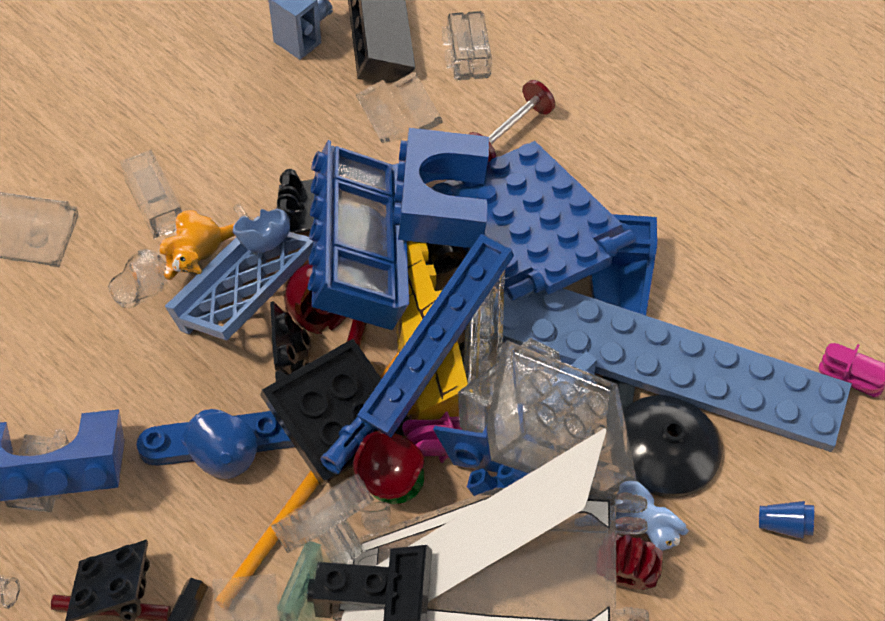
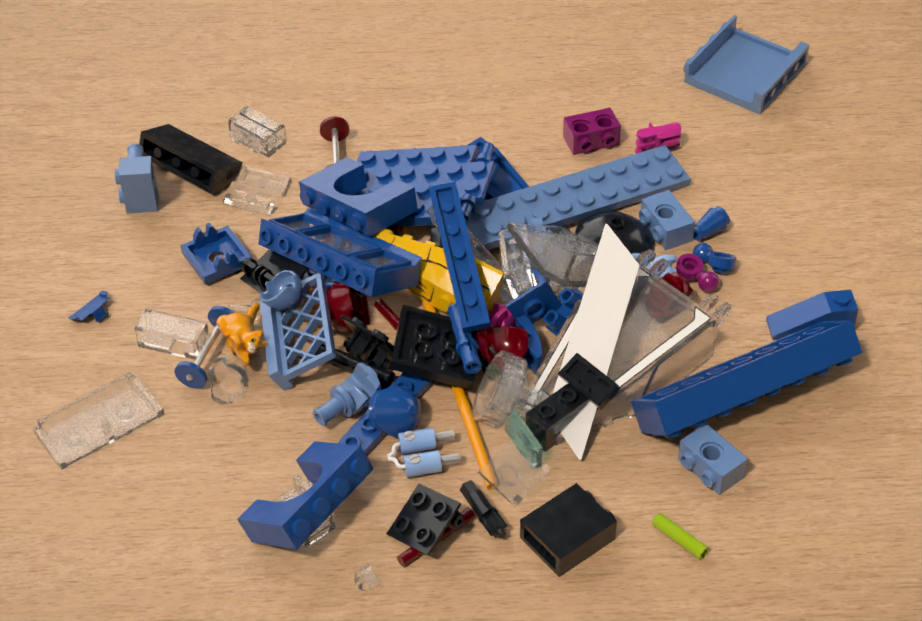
camera: 45 degrees left, 10 degrees down
(116, 247) = (191, 373): none -> blue axle
(132, 113) = (92, 307): none -> blue piece
(194, 523) = (424, 462): none -> light blue piece
(217, 390) = (351, 395): none -> medium blue piece
(259, 368) = (348, 363): none -> black pin
(279, 127) = (214, 241): none -> blue piece
(430, 493) = (534, 352): none -> blue slope
(702, 582) = (691, 268): none -> magenta plate
(741, 492) = (667, 220): none -> medium blue brick
(744, 570) = (719, 261): none -> blue plate
(793, 298) = (591, 131): none -> magenta brick

